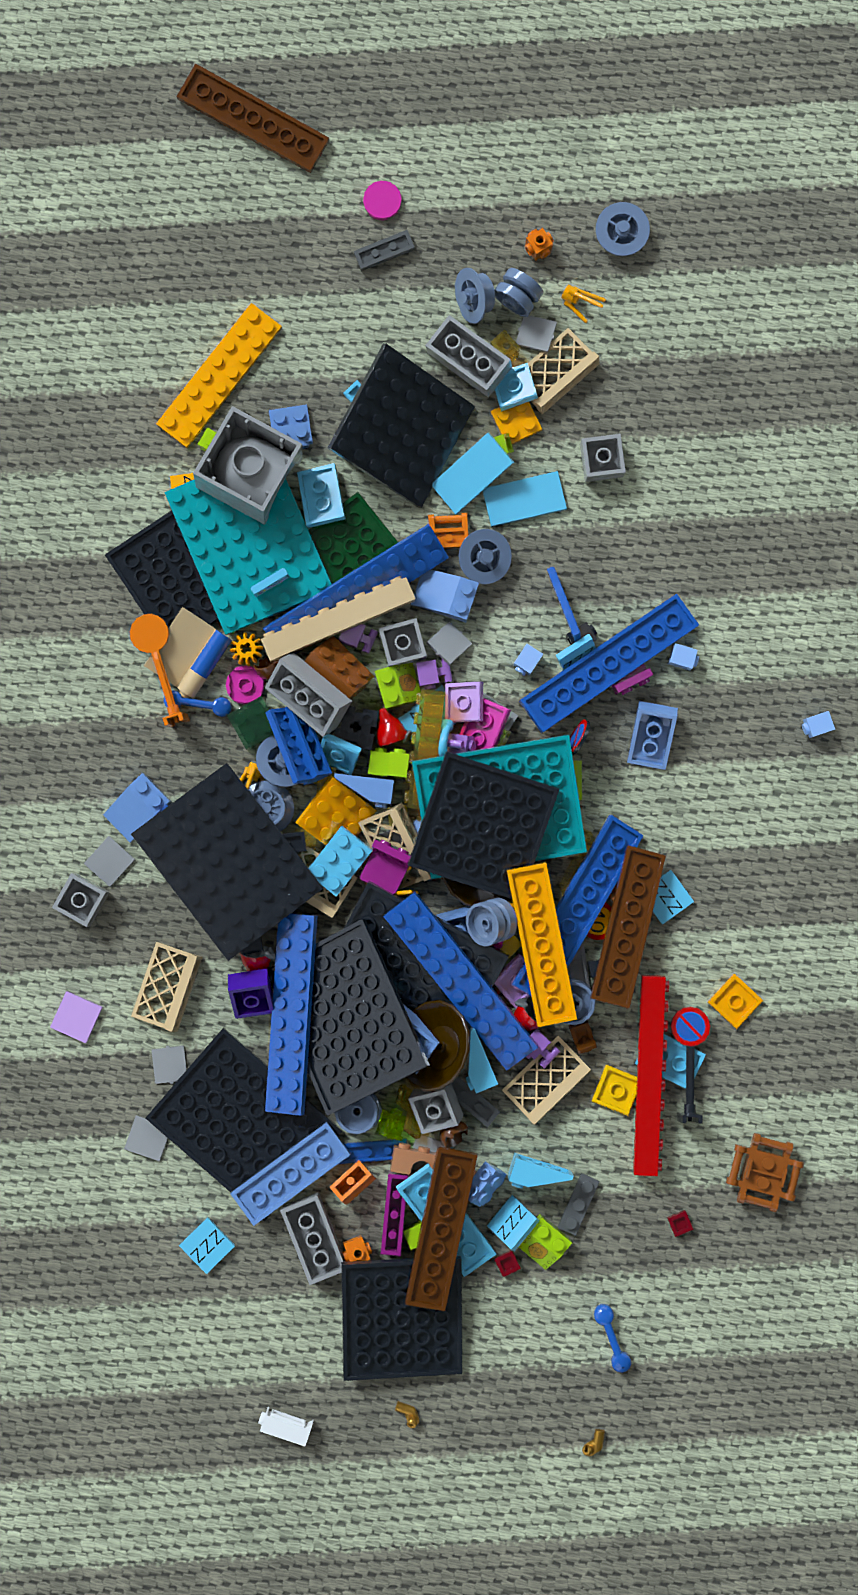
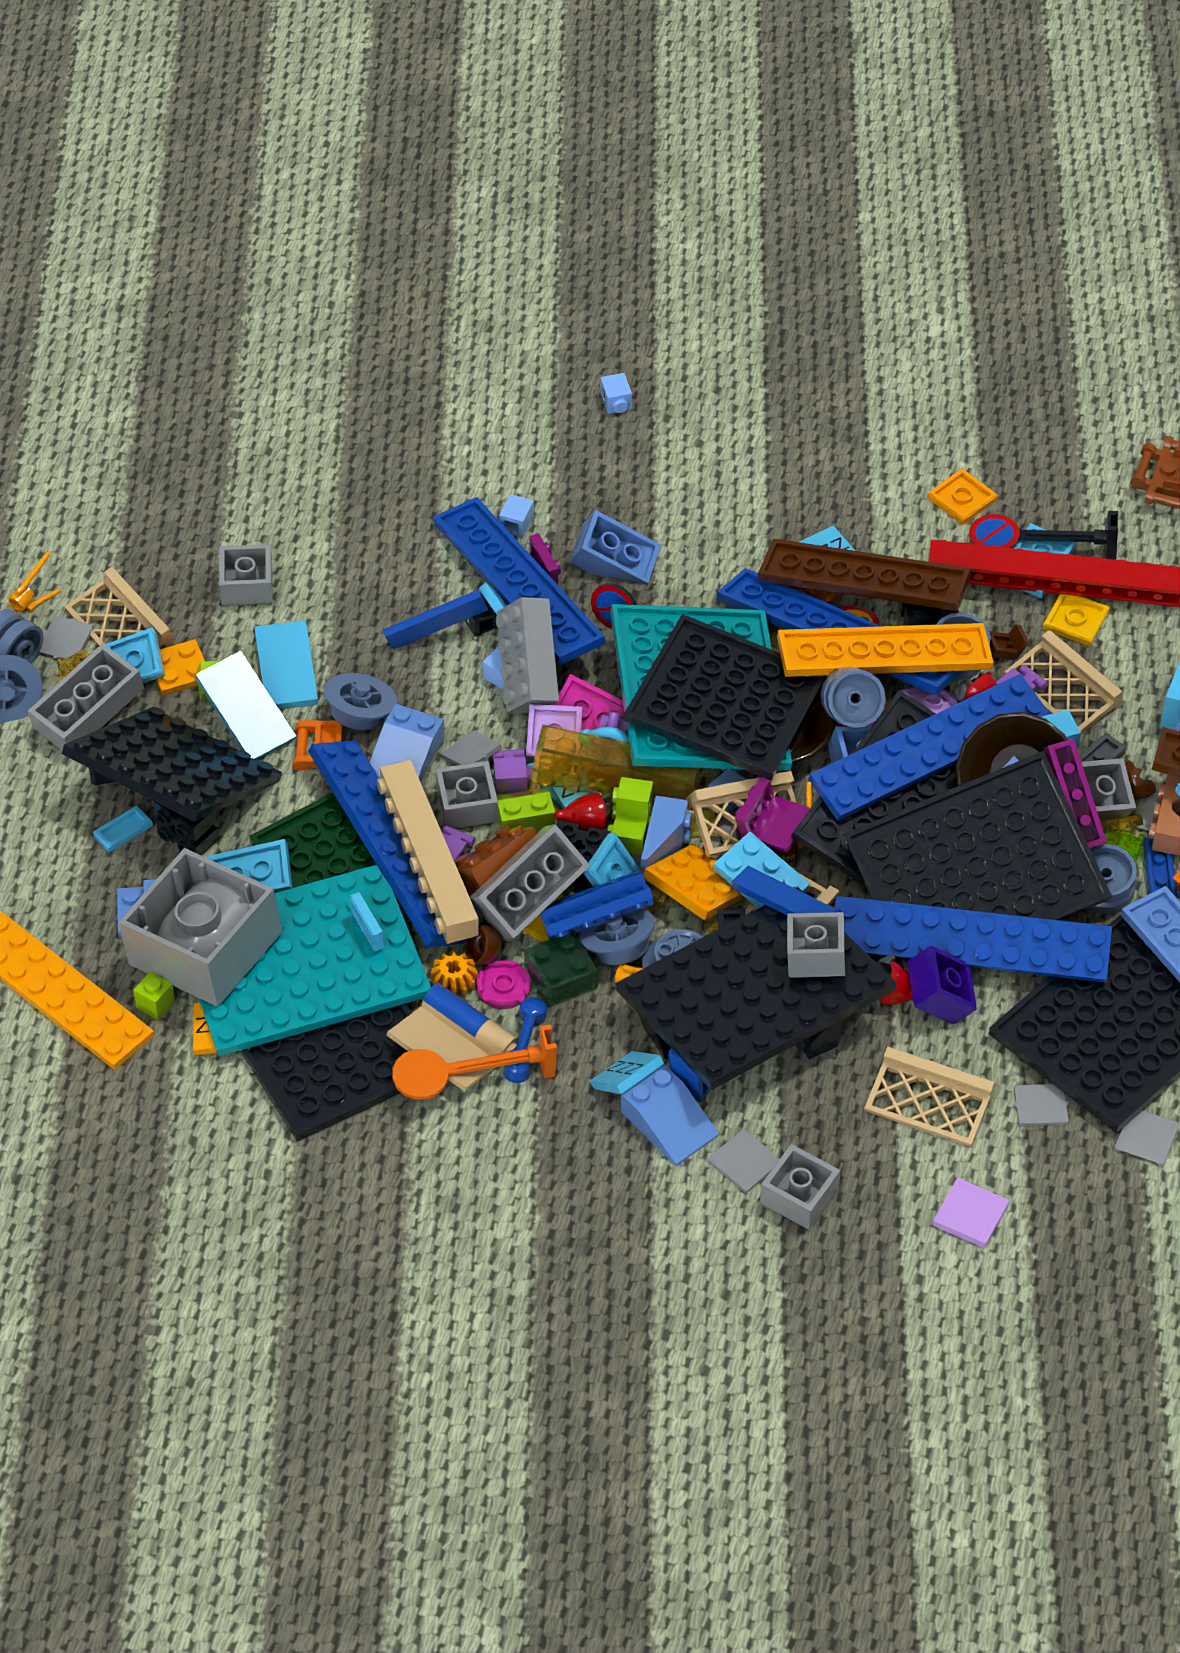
camera: 85 degrees left, 35 degrees down
(166, 775) = (627, 1072): none -> medium azure tile
(246, 902) = (816, 944): none -> light grey brick
(303, 878) = (777, 894): none -> blue tile
(407, 1088) = (1074, 784): none -> magenta brick
(521, 675) = (527, 654): none -> light grey brick

